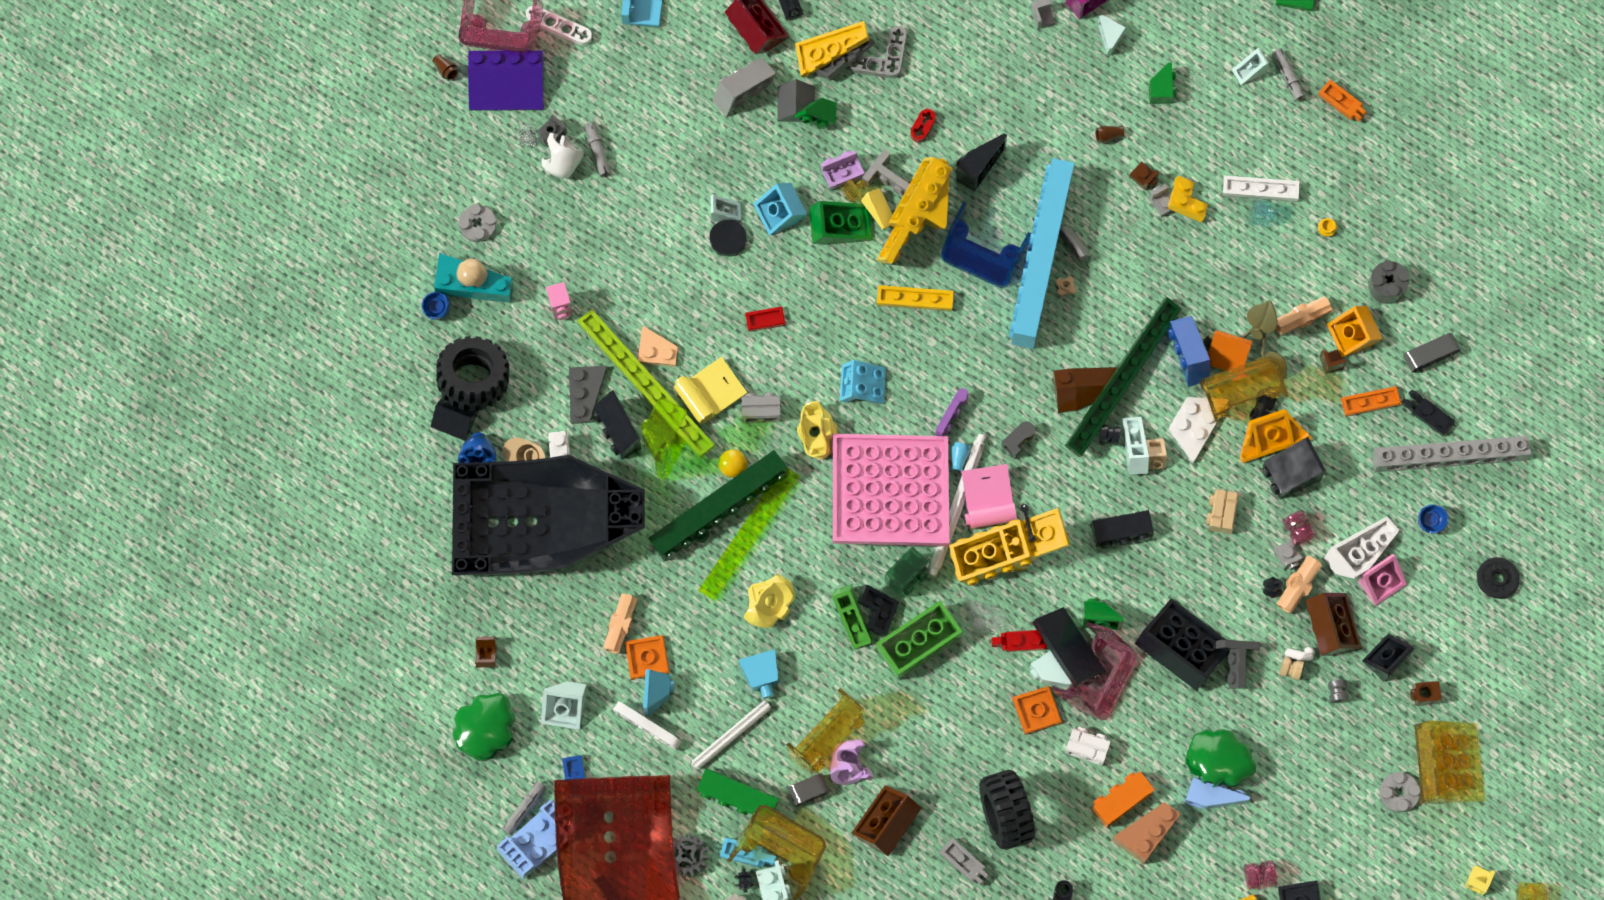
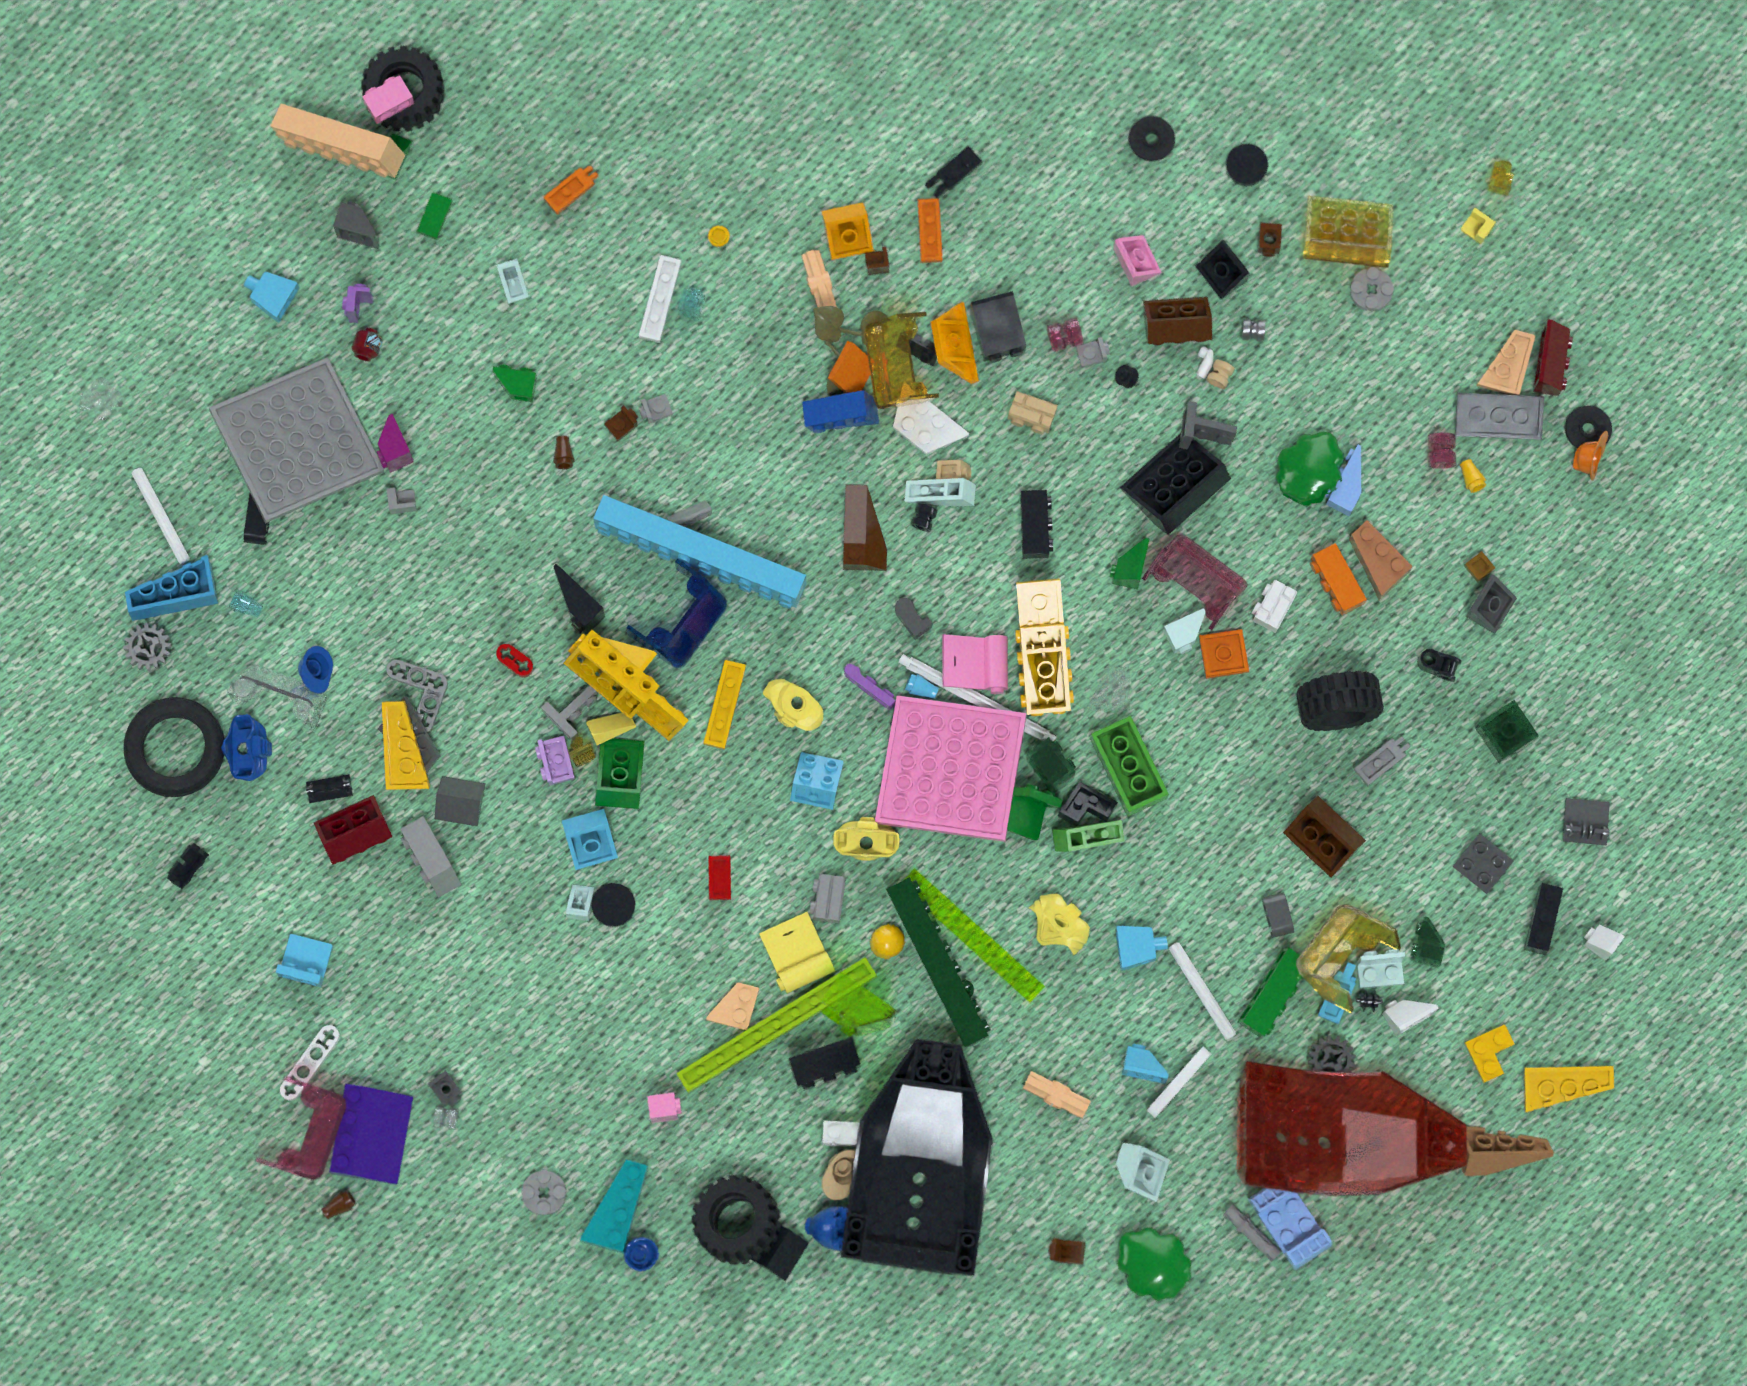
camera: 85 degrees left, 5 degrees up
(471, 273) = (615, 1203): tan hair -> none
(563, 157) = (486, 1077): white piece -> none
(573, 767) = (1218, 1172): blue slope -> none
(584, 391) = (772, 1097): dark grey wing -> none
(597, 148) = (476, 1039): light grey pin -> none
(646, 654) = (1098, 1071): orange tile -> none
(819, 113) = (480, 775): green slope -> none
(828, 734) = (1224, 882): clear yellow windscreen -> none
(845, 766) = (1257, 869): lavender piece -> none
(863, 561) = (1028, 810): none -> green bracket
(924, 336) = (781, 693): none -> light yellow piece
(1019, 641) = (1143, 657): red hinge -> none
(1024, 508) = (1007, 621): black hinge -> none
(1066, 291) = (743, 539): tan plate -> none
(1068, 646) = (1161, 605): black tile -> none
(1110, 32) = (441, 428): light aqua slope -> none
(1122, 377) = (860, 490): dark green plate -> none
(1183, 203) = (662, 387): yellow plate -> none
(1292, 81) = (528, 241): light grey pin -> none
(1299, 584) = (1129, 347): light nougat piece -> none
(1361, 550) = (1104, 276): white wedge -> none
(1391, 272) = (797, 194): dark grey brick -> none
(1431, 351) = (886, 153): dark grey beam -> none
(1433, 515) = (1077, 191): blue hair -> none
(1451, 454) = (1007, 157): light grey brick -> none
(1492, 664) = (1247, 164): none -> black tile

